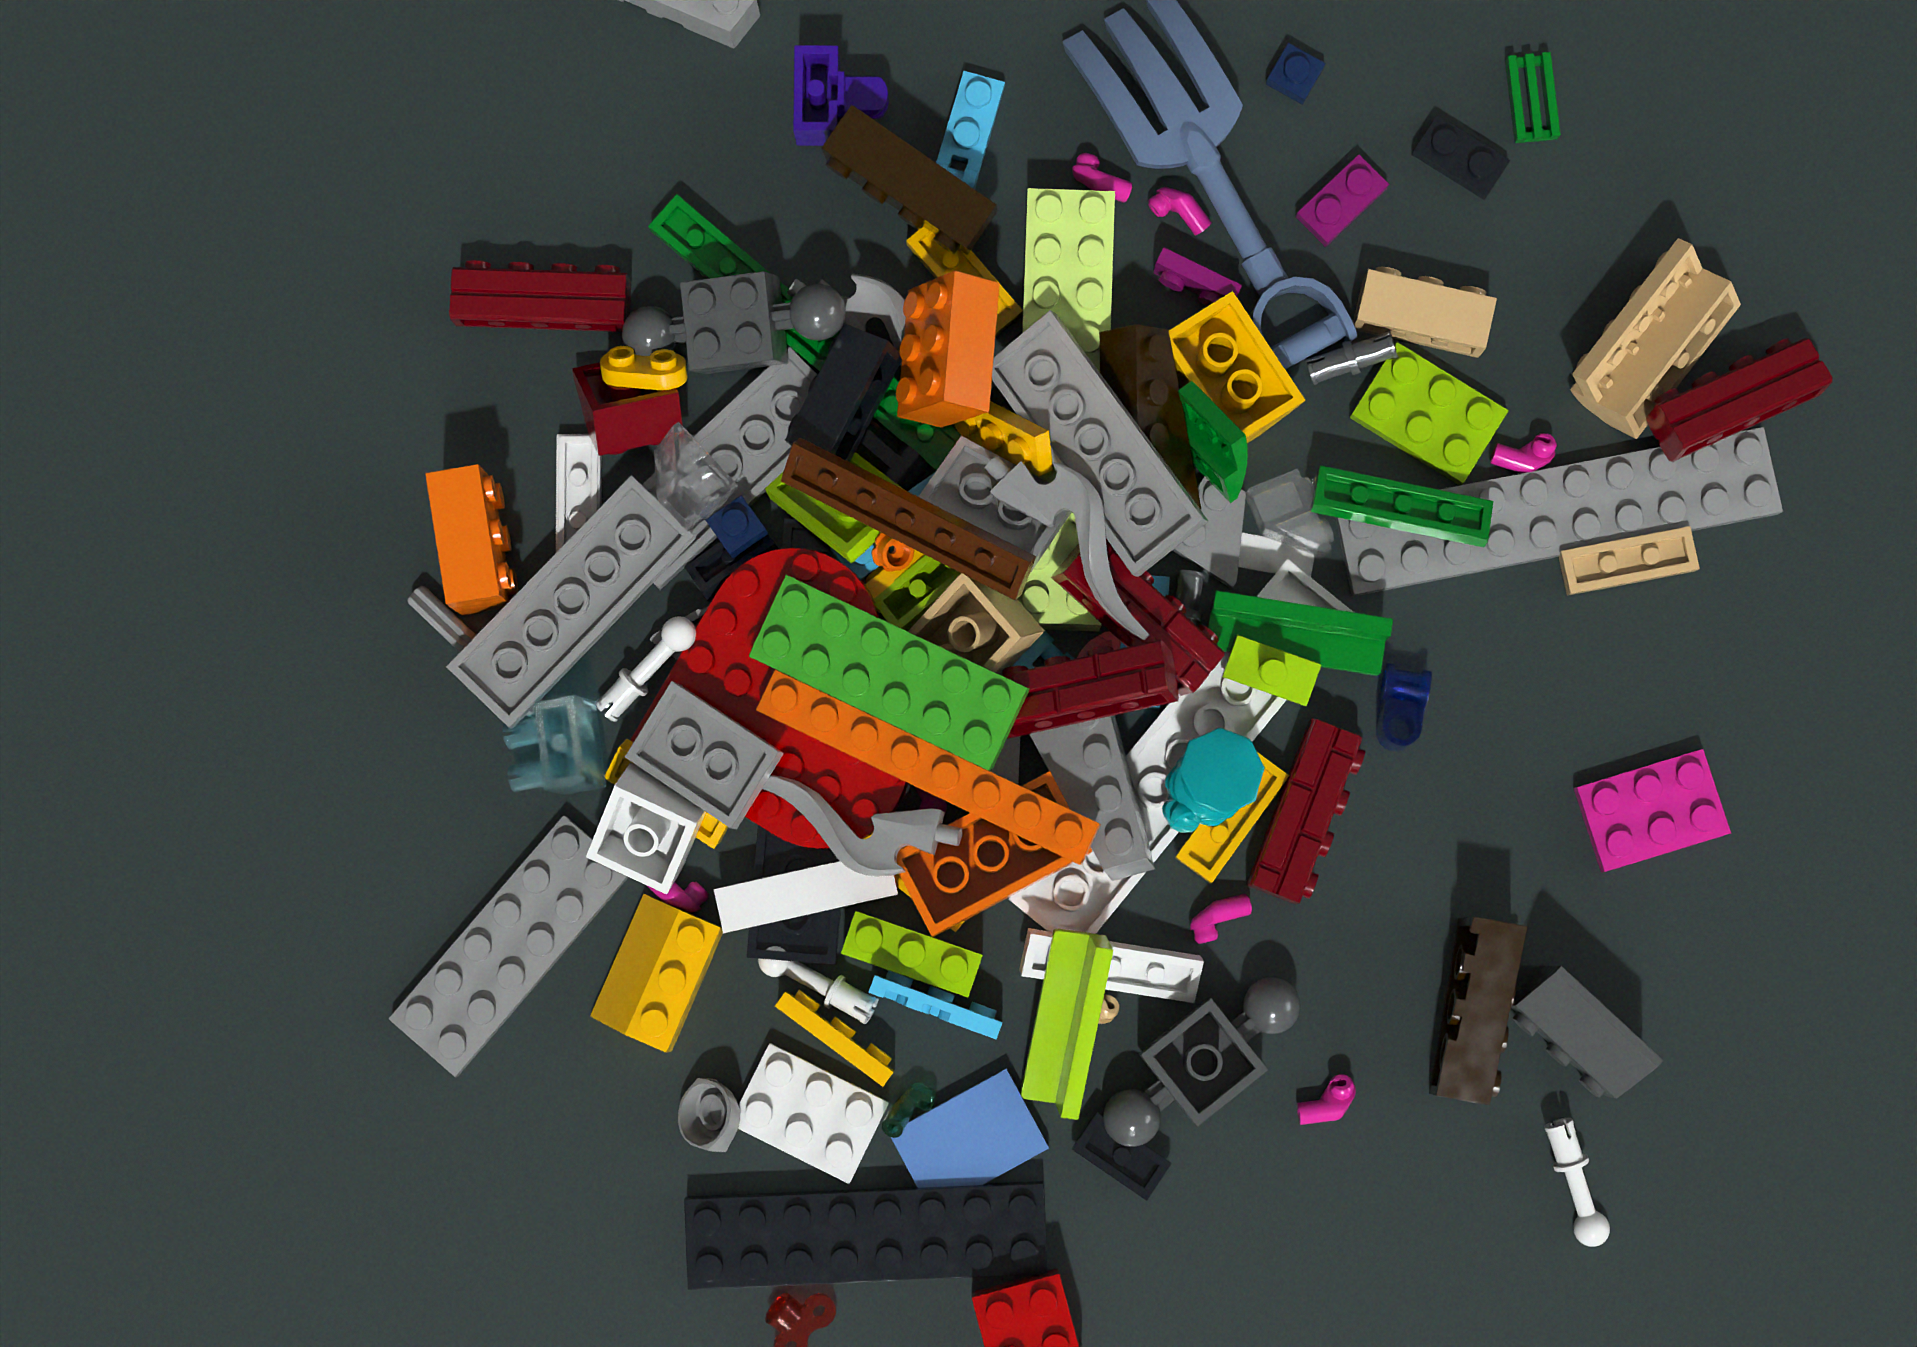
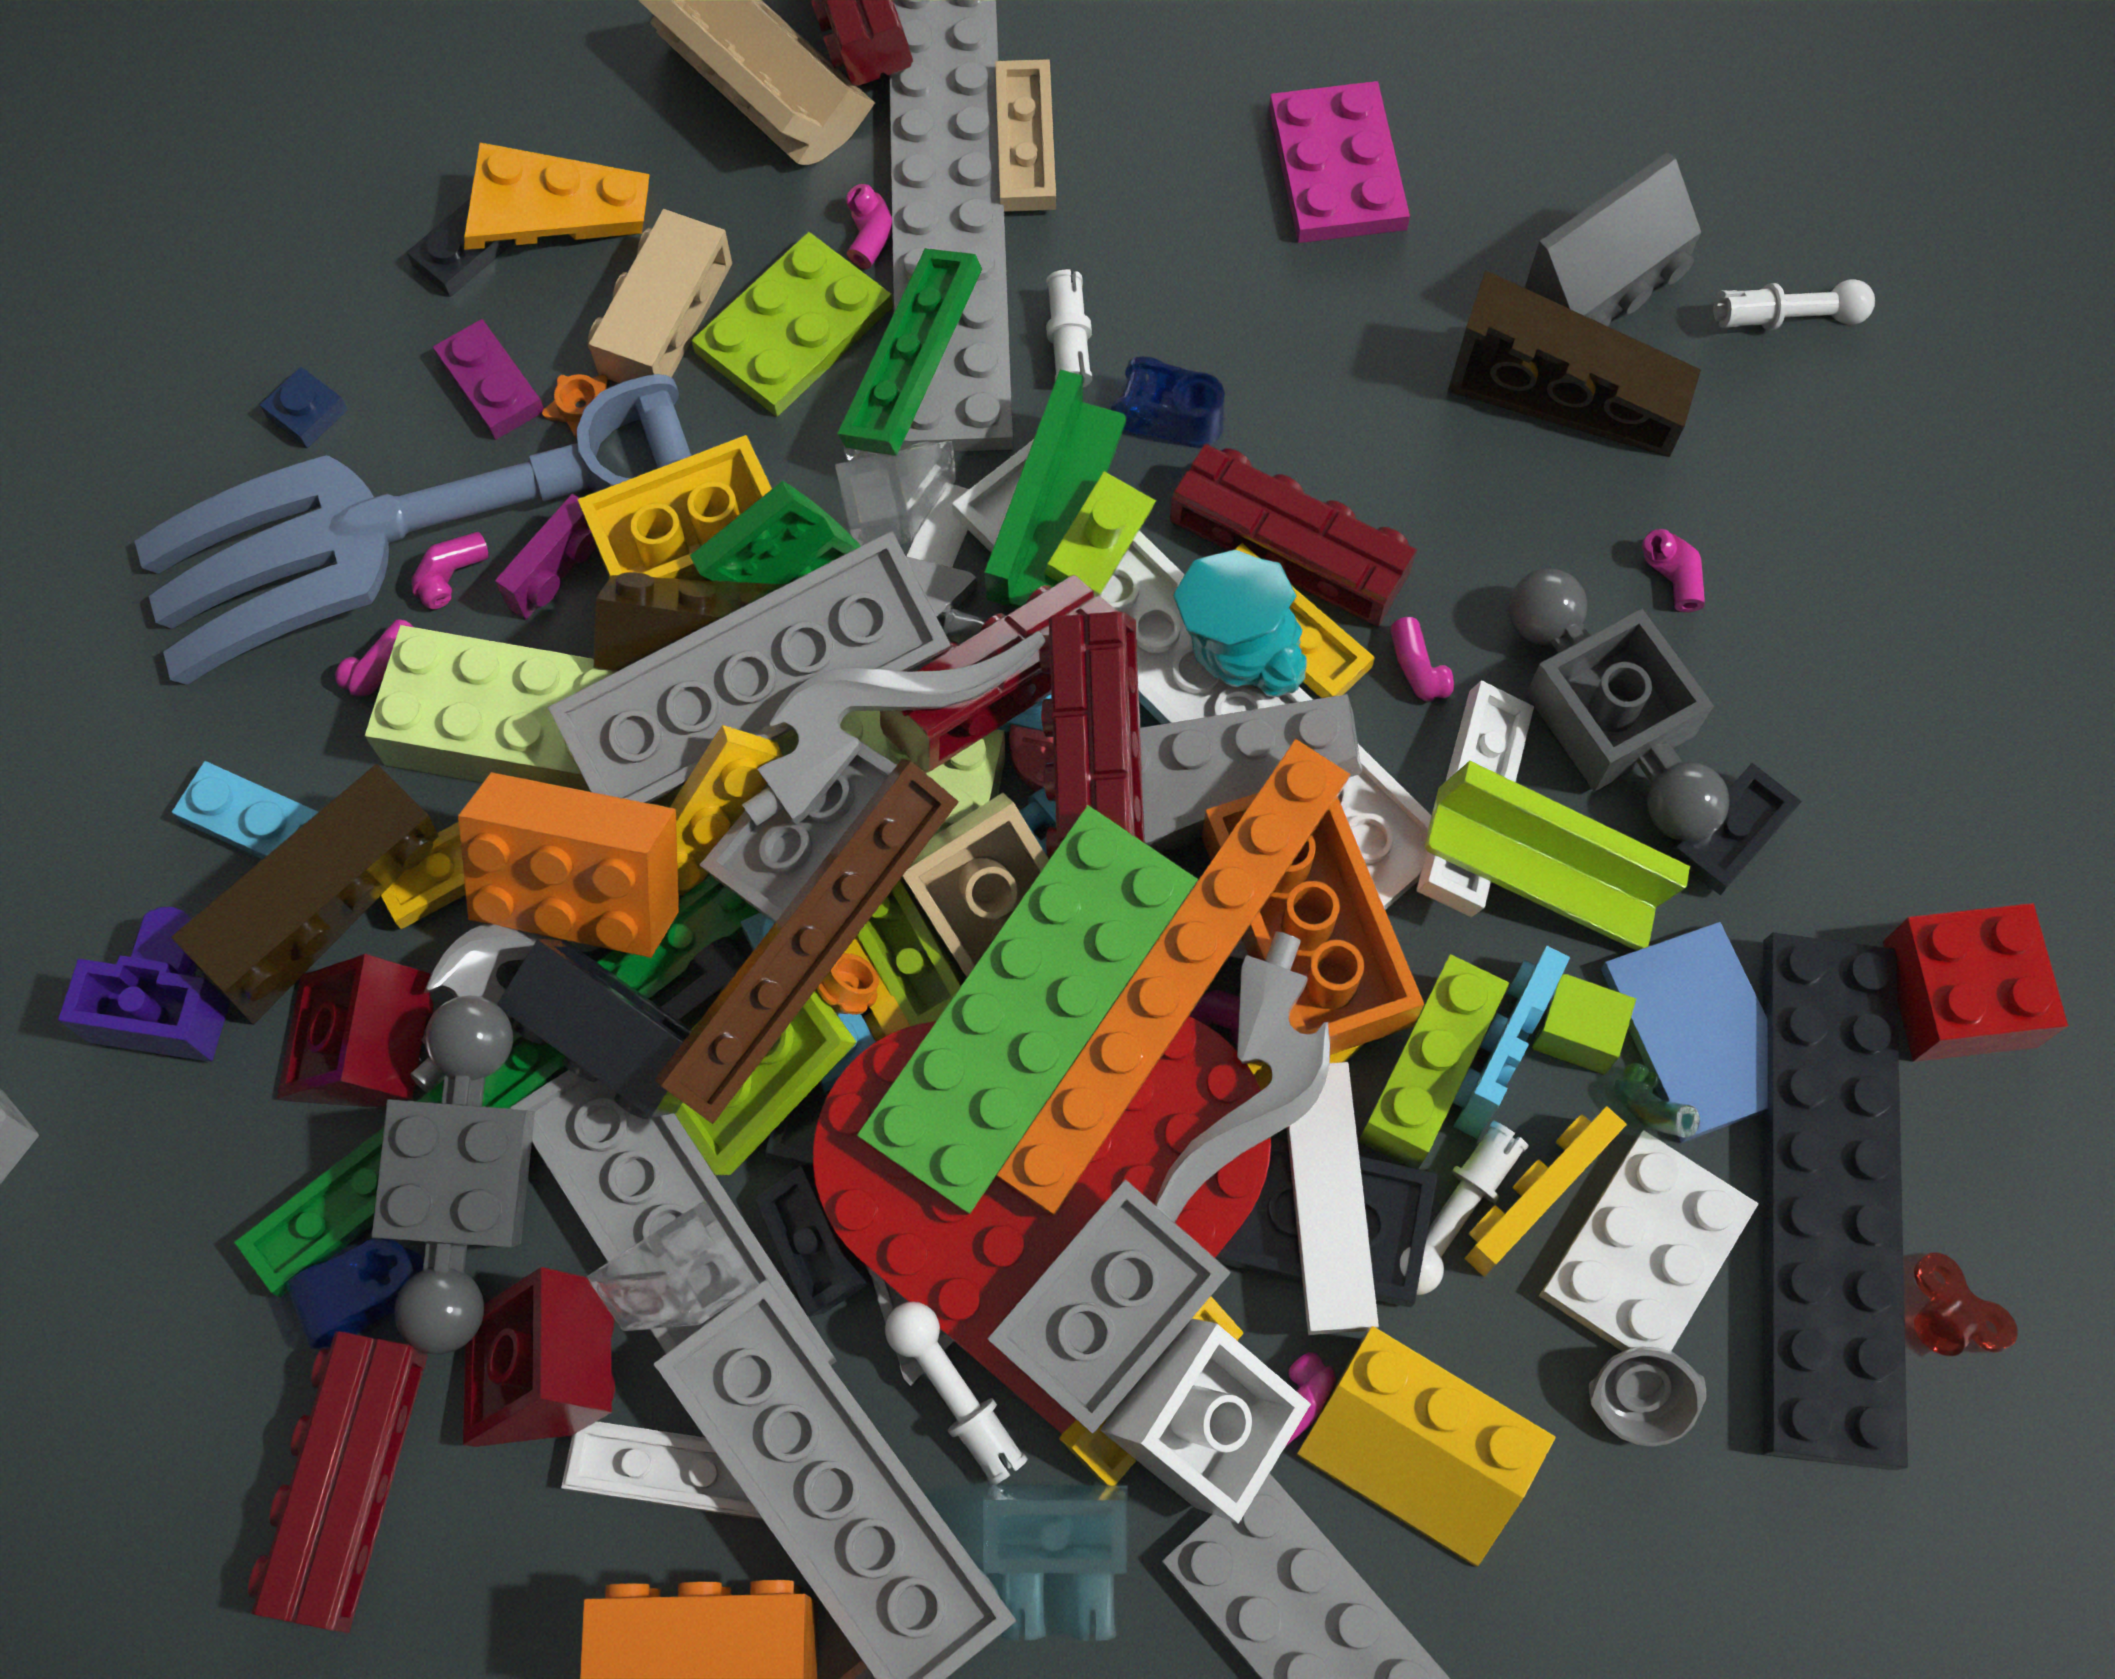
camera: 85 degrees left, 15 degrees down
(655, 274) = (348, 1290): none -> clear blue piece
(656, 372) = (501, 1299): yellow plate -> none
(736, 526) = (764, 1219): dark blue plate -> none
(824, 234) = (356, 1034): none -> dark red slope
(956, 1056) = (1585, 1024): none -> lime panel
(1343, 263) = (569, 392): none -> orange plate
(1351, 357) = (699, 389): dark grey pin -> none
(1455, 622) = (1068, 324): none -> white pin
(1501, 210) = (545, 195): none -> light orange wing
(1529, 62) = (418, 144): green tile -> none

